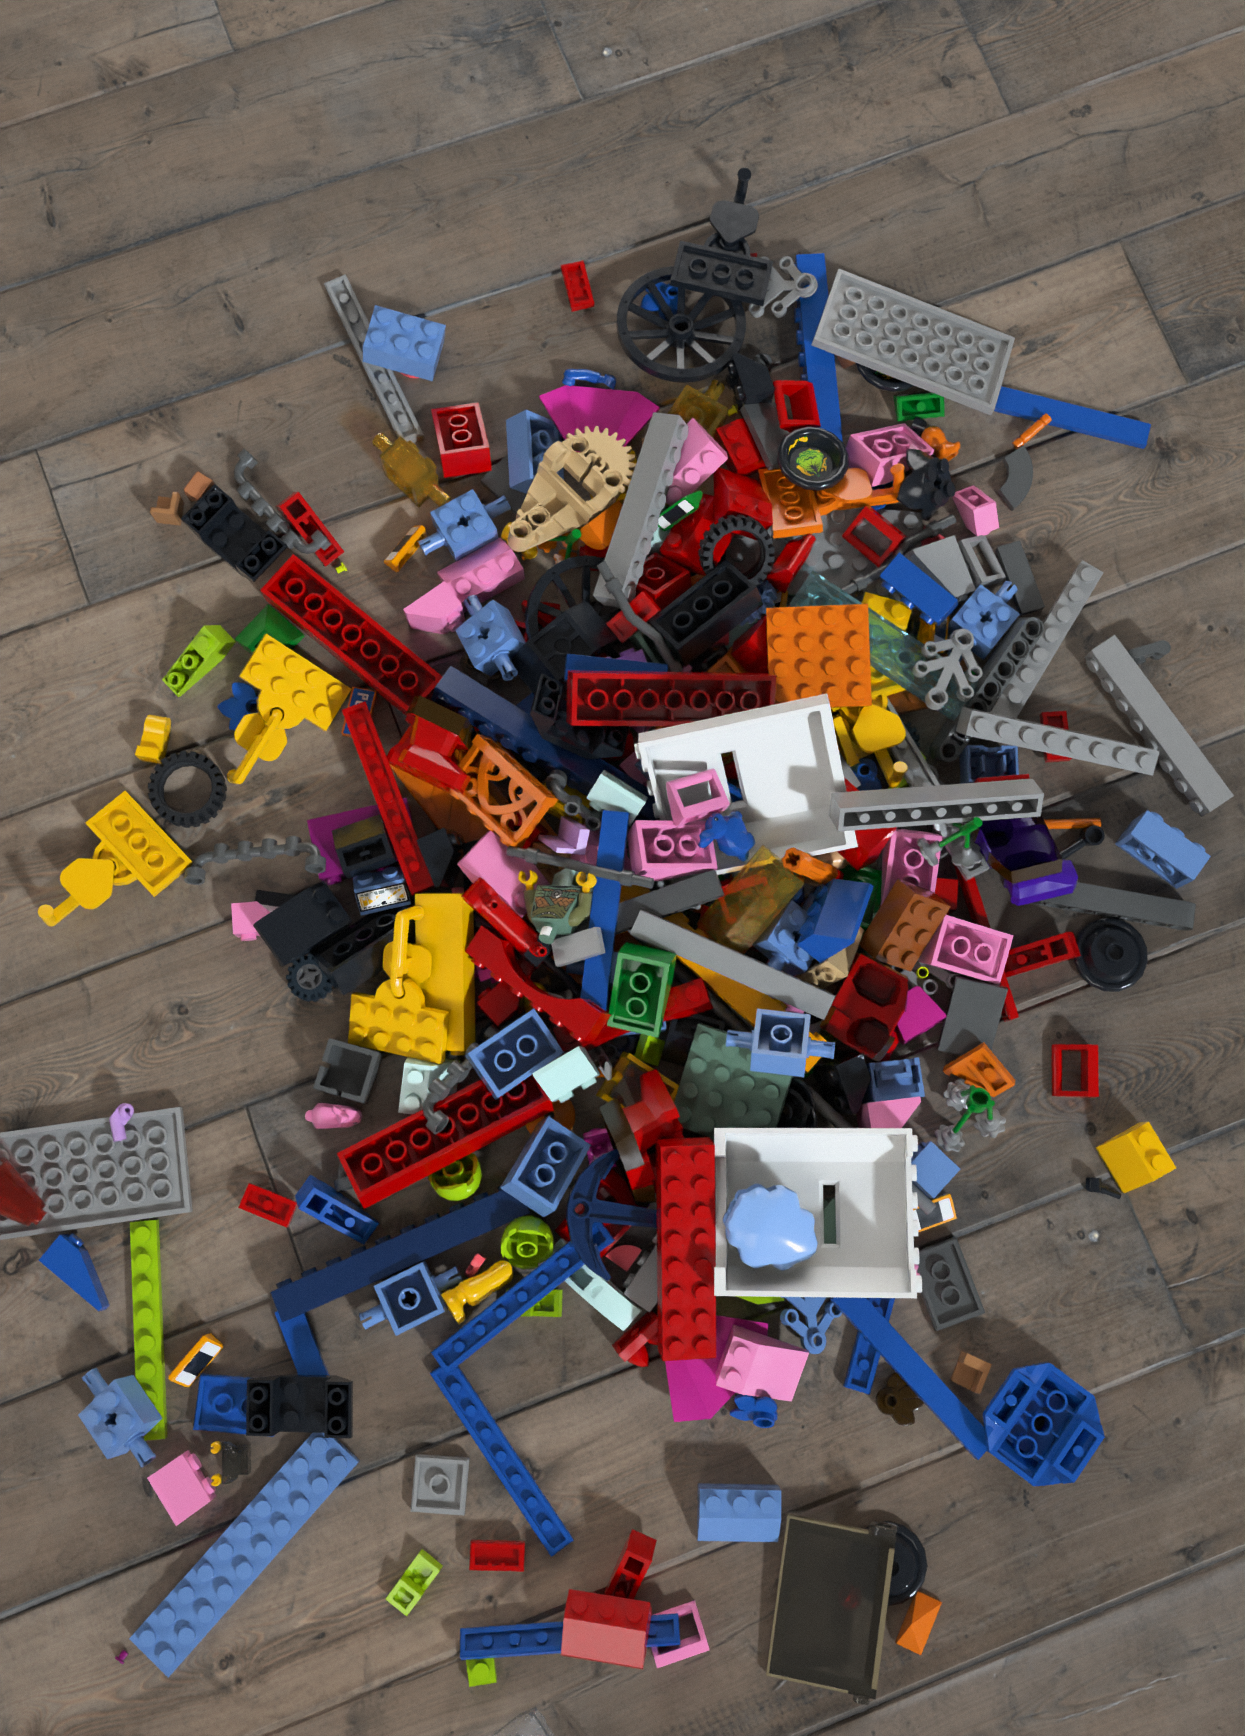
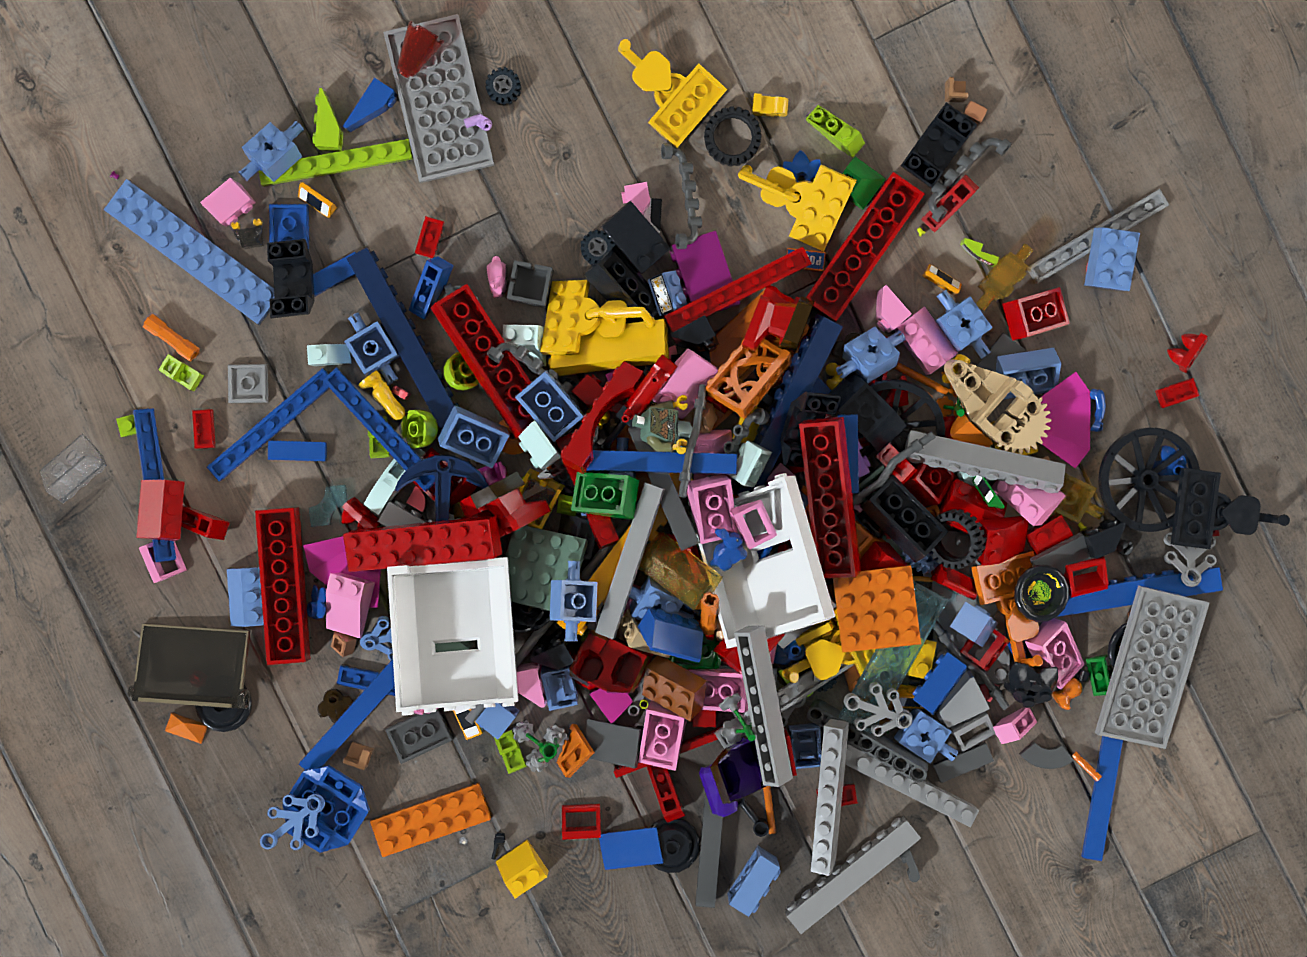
camera: 90 degrees right, 10 degrees up
(69, 1080) = (500, 80): none -> black wheel
(106, 1333) = (328, 129): none -> lime slope
(349, 1607) = (160, 329): none -> orange axle
(363, 846) = (698, 275): black slope -> none
(373, 504) = (974, 249): none -> lime slope
(412, 1362) = (328, 354): none -> light aqua slope
(515, 685) = (836, 379): none -> yellow animal
(529, 582) = (921, 378): none -> orange bar
(534, 274) = (1184, 358): none -> red tile
(541, 1421) = (297, 450): none -> blue tile
(570, 839) = (713, 430): lavender panel -> none
(578, 946) = (632, 445): light grey tile -> none
(630, 1392) = (322, 513): none -> clear light blue tile
(727, 1458) = (282, 585): none -> red brick
(770, 1227) = (440, 603): light blue piece -> none
(814, 1379) = (343, 643): none -> nougat slope
(846, 541) = (974, 623): none -> medium blue piece
(978, 1158) = (510, 752): none -> lime slope
(1056, 1467) = (295, 820): none -> medium blue plant
(1063, 1279) = (430, 819): none -> orange plate
(1113, 1007) = (630, 848): none -> blue window

